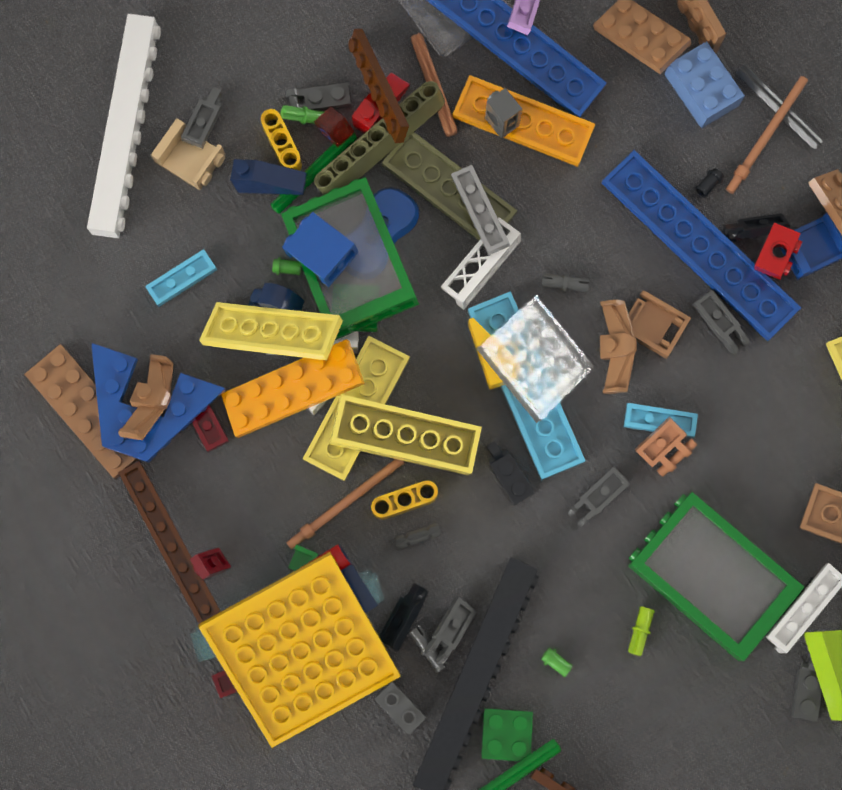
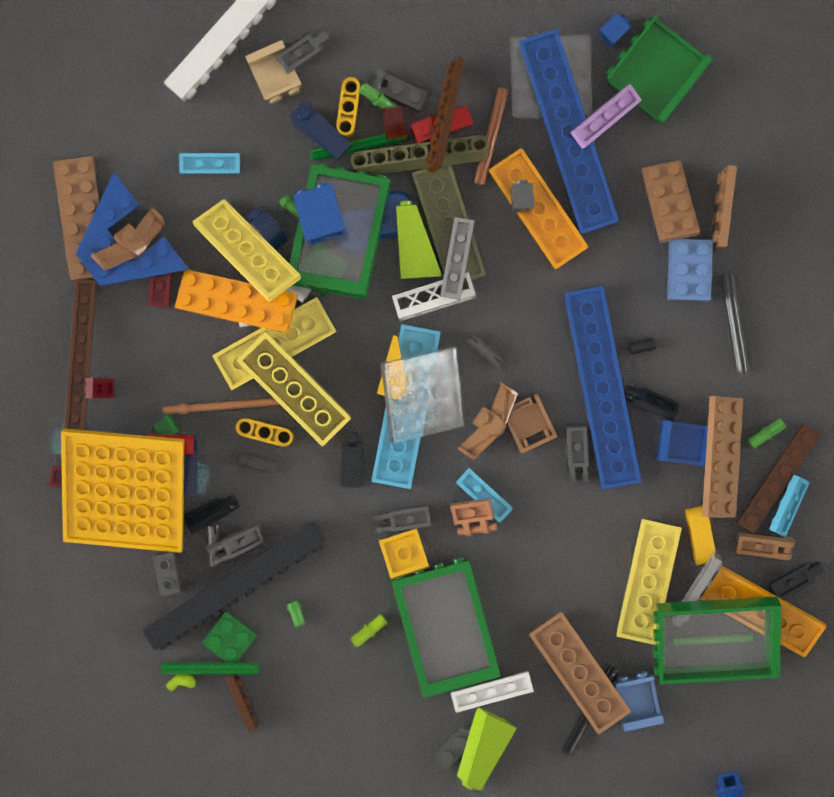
camera: 40 degrees right, 10 degrees up
(429, 225) = (415, 249): none -> lime slope
(623, 529) = (404, 554): none -> yellow plate
(743, 171) = (671, 354): nougat bar -> none
(778, 237) = (638, 433): red brick -> none

